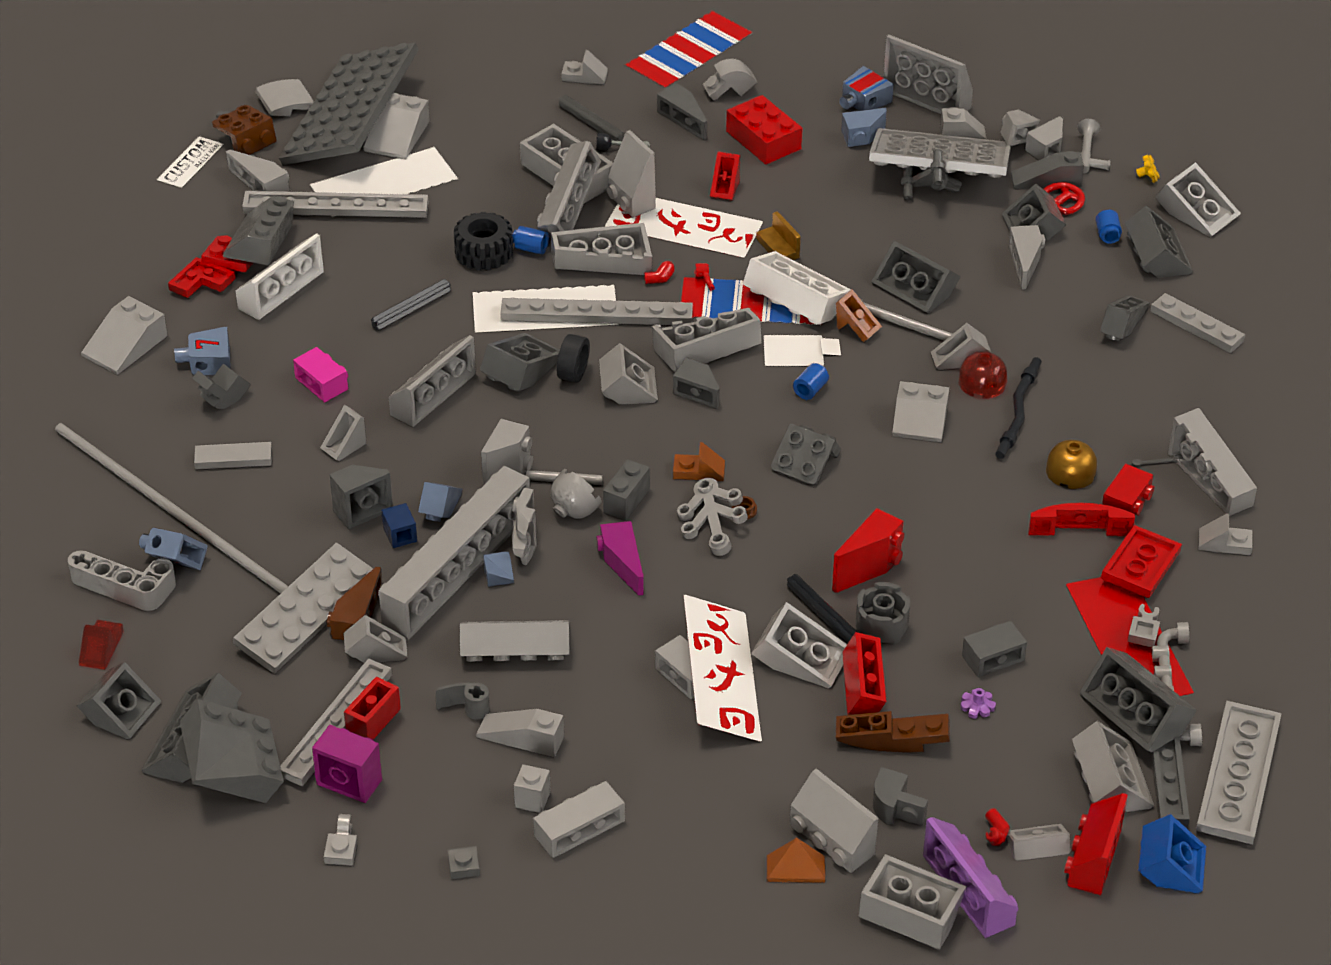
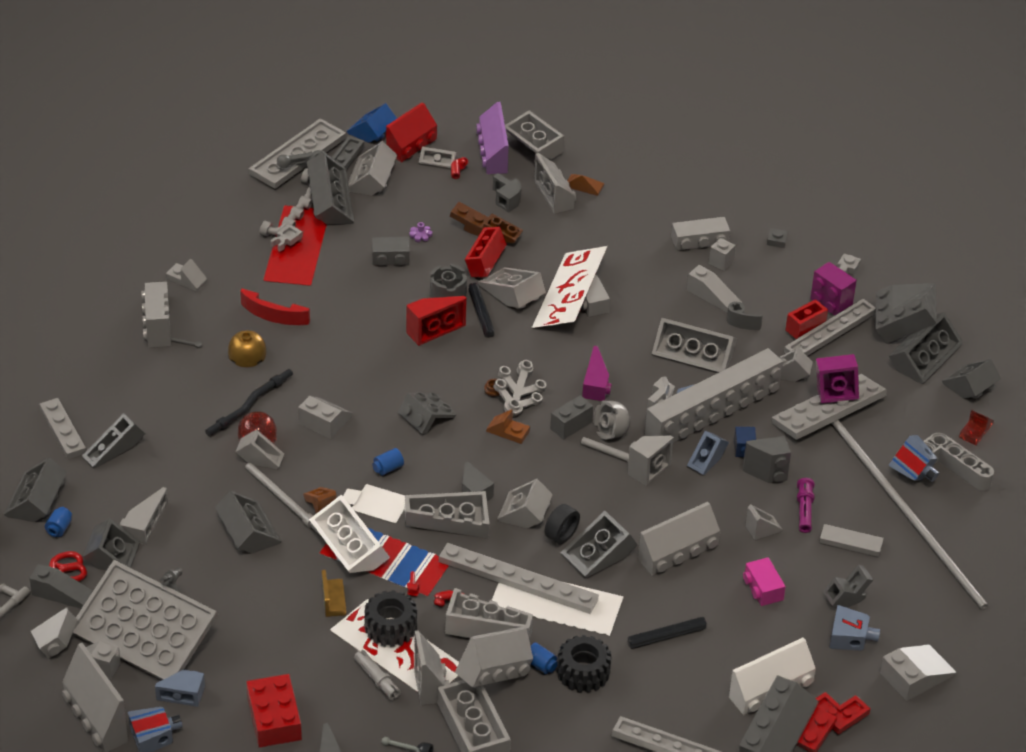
camera: 160 degrees left, 0 degrees up
(299, 596) = (837, 378): none -> magenta brick
(301, 482) = (805, 522): none -> magenta pin
(355, 604) = (797, 390): reddish brown slope -> none
(684, 186) = (381, 679): none -> light grey pin
(703, 225) = (390, 606): none -> black tyre
(725, 176) = (338, 671): red slope -> none
(1045, 139) = (30, 618): light grey slope -> none
(1129, 489) = (227, 316): red brick -> none
(1141, 561) = (255, 273): red plate -> none
(1197, 750) = (285, 161): none -> dark grey piece

